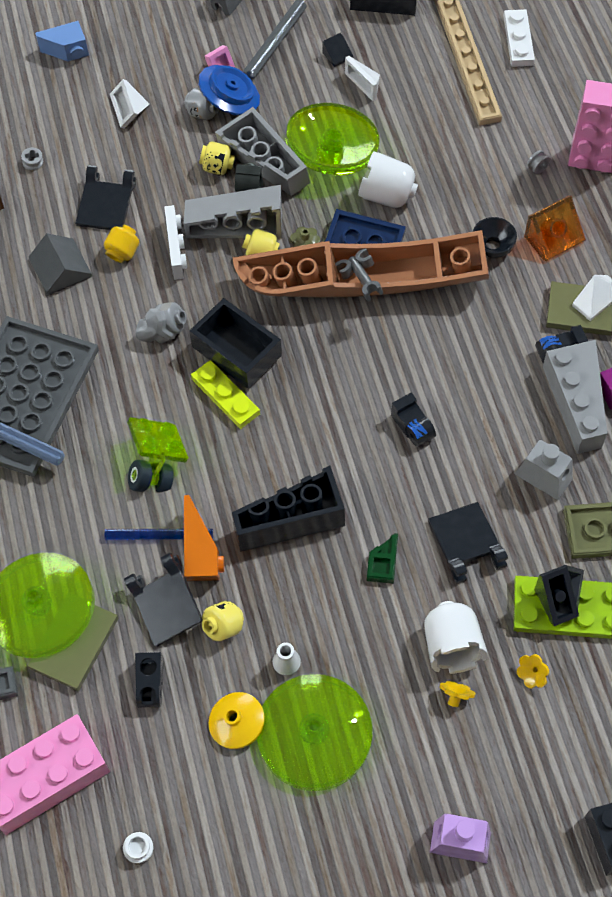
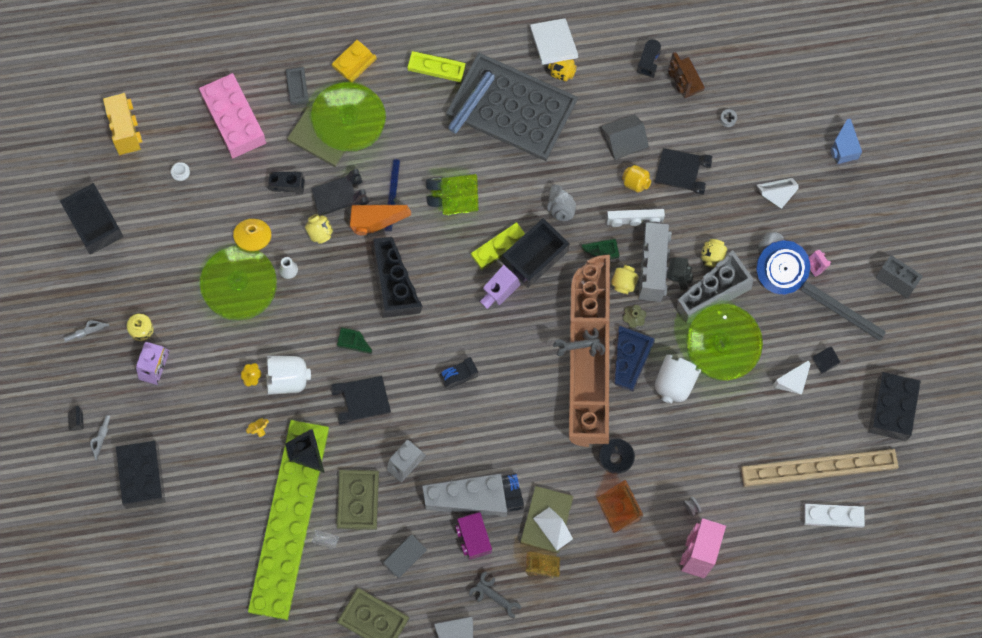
camera: 90 degrees right, 10 degrees up
(220, 277) = (600, 248): none -> dark green tile
(288, 379) = (502, 280): none -> lavender torso
(402, 875) = (140, 327): none -> light yellow head

